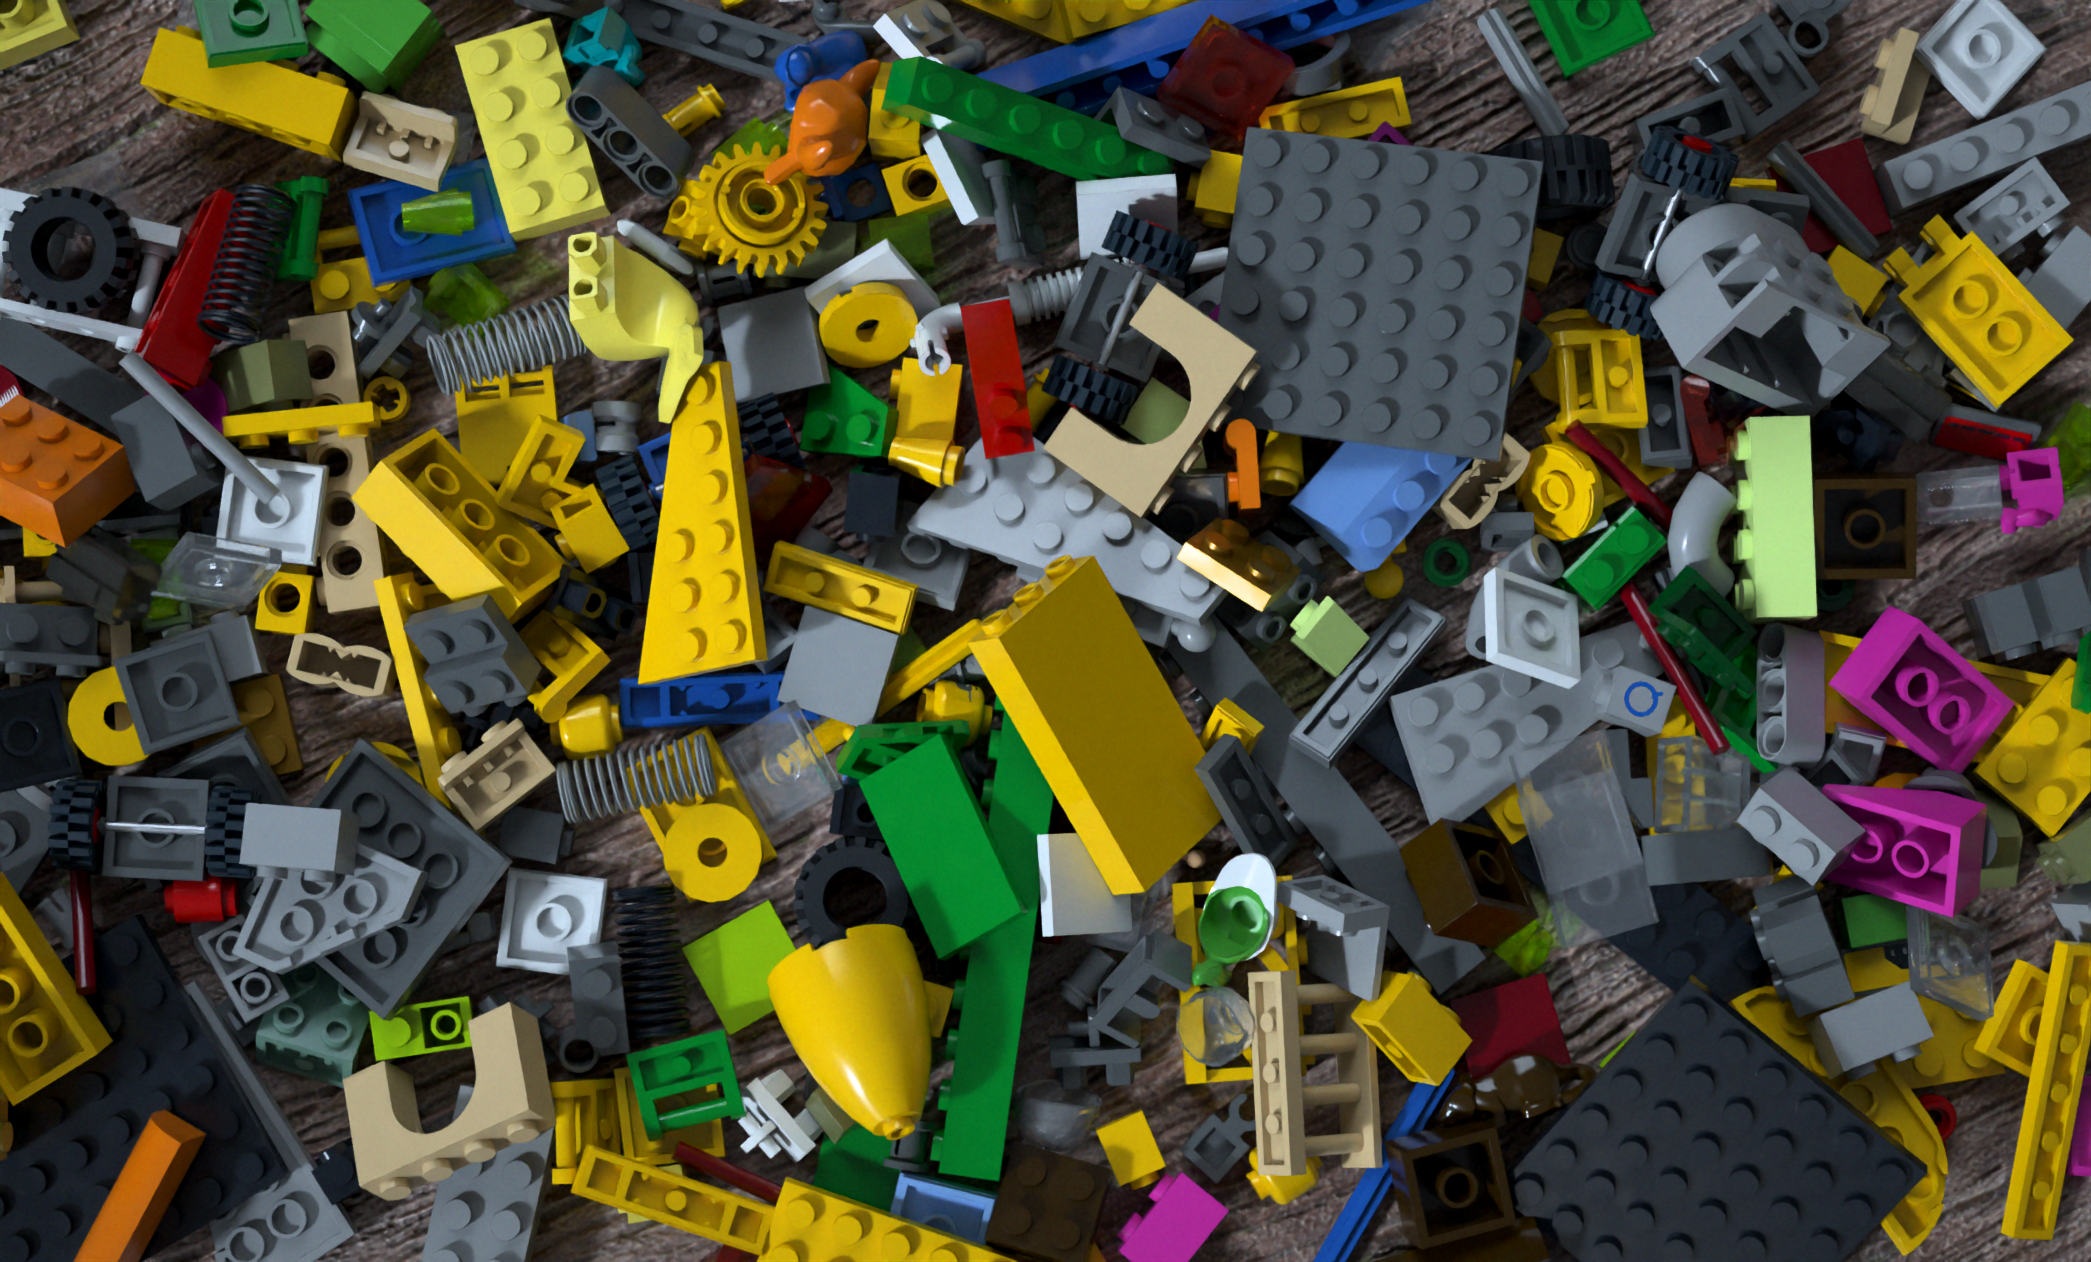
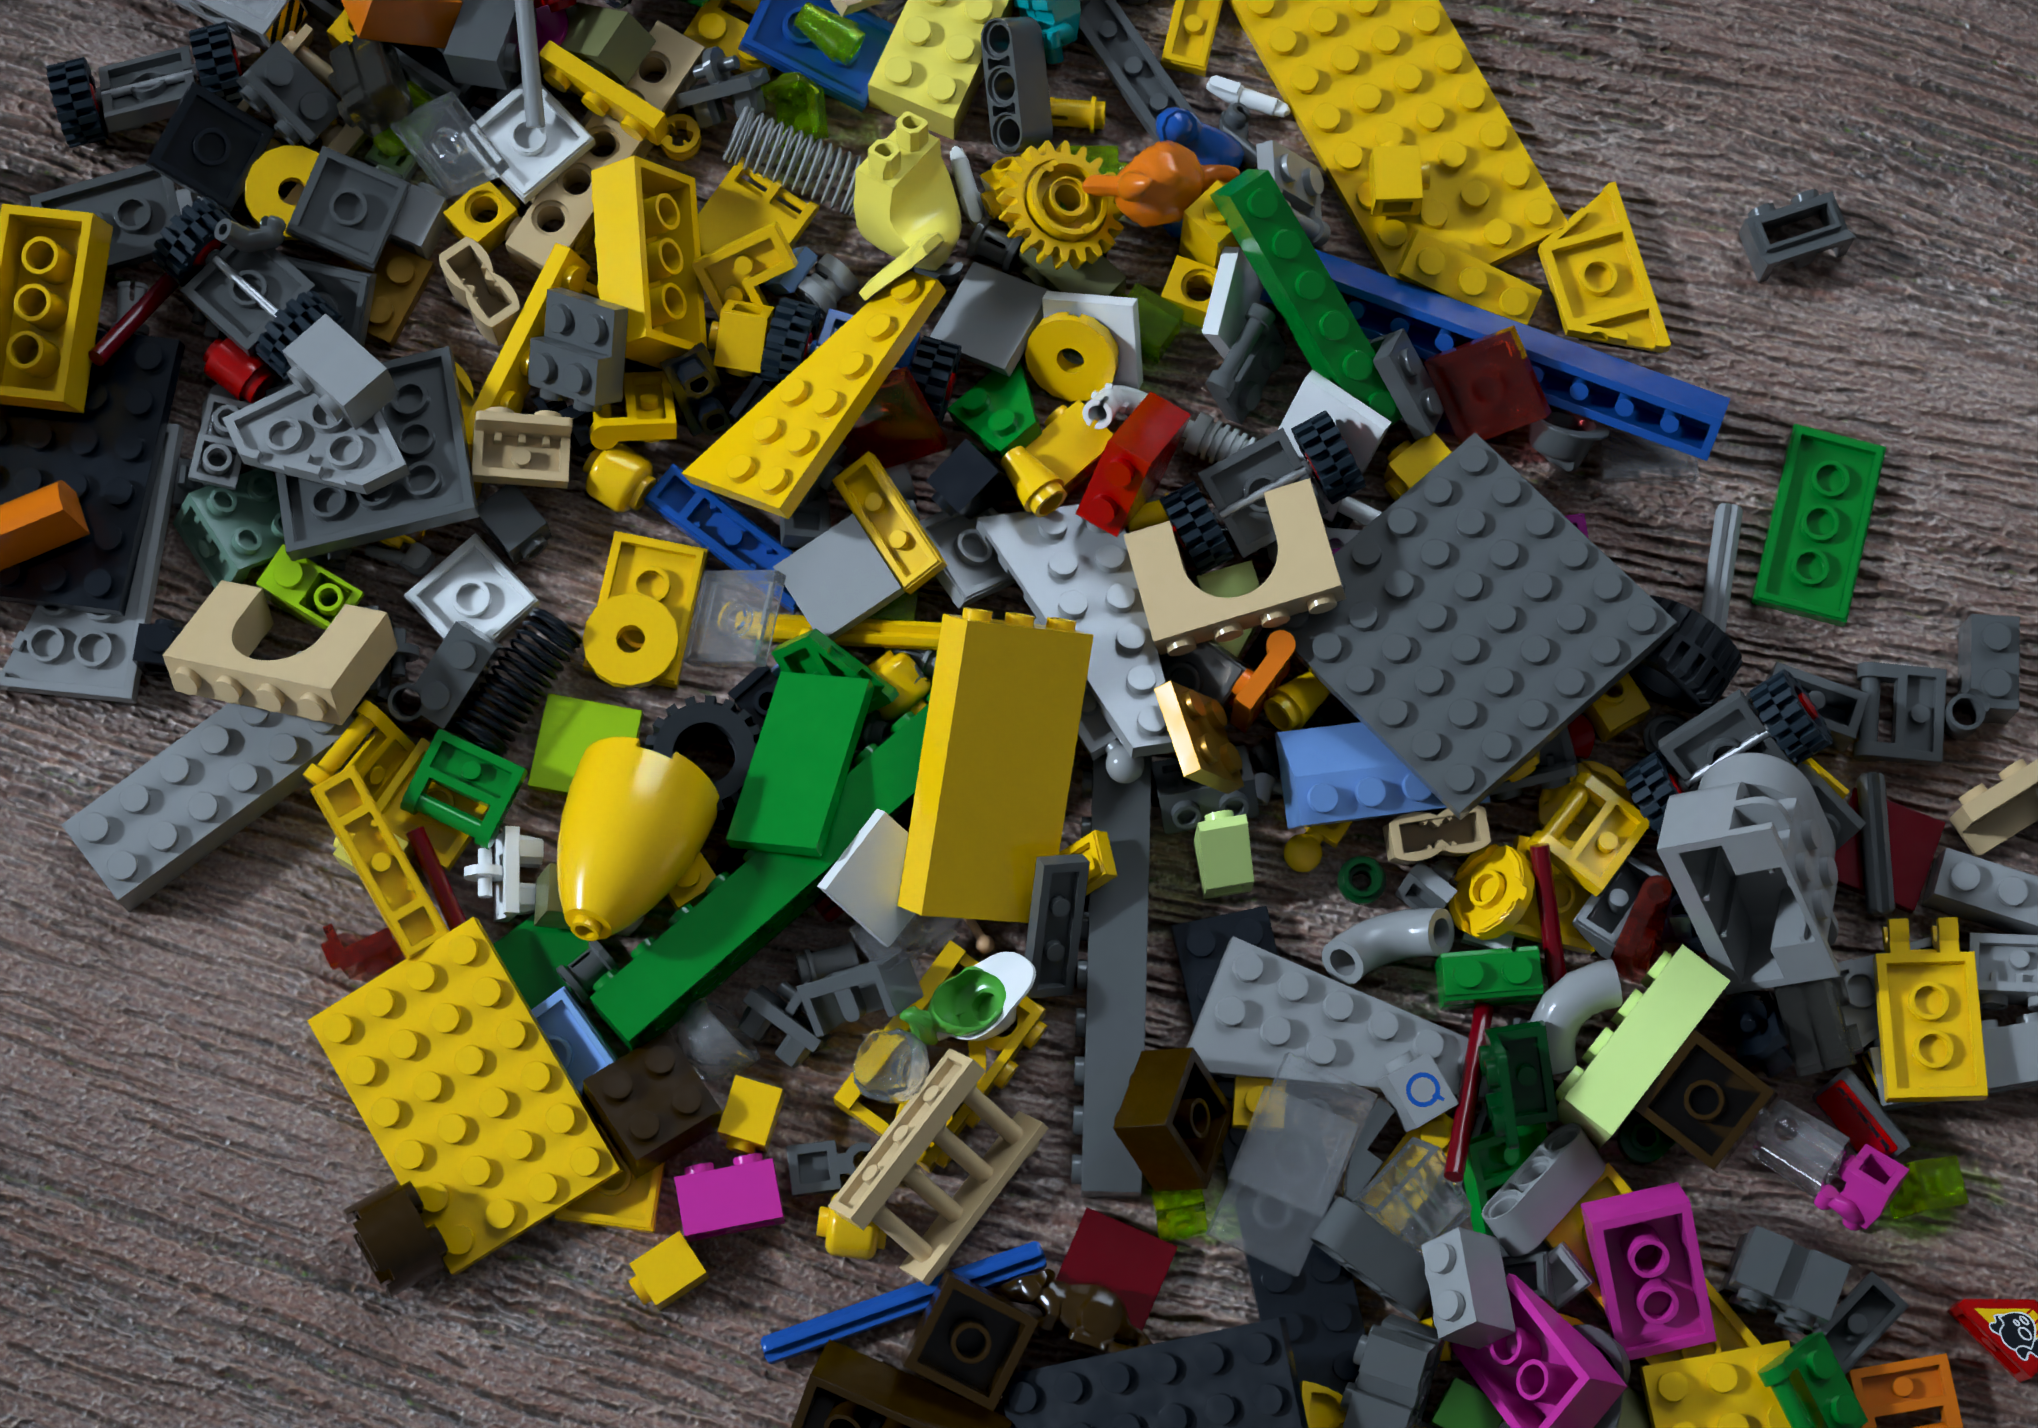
camera: 40 degrees right, 10 degrees down
(124, 790) = (252, 240): none -> dark grey arm
(569, 796) = (674, 575): light grey piece -> none
(836, 194) = (1129, 251): blue bracket -> none
(1343, 113) = (1563, 488): yellow plate -> none
(1344, 932) = (1049, 1081): light grey bracket -> none
(1367, 681) = (1225, 913): dark grey tile -> none
(1413, 1028) = (1040, 1197): yellow brick -> none
(1532, 628) = (1383, 970): white plate -> none
(1858, 279) = (1855, 923): yellow brick -> none

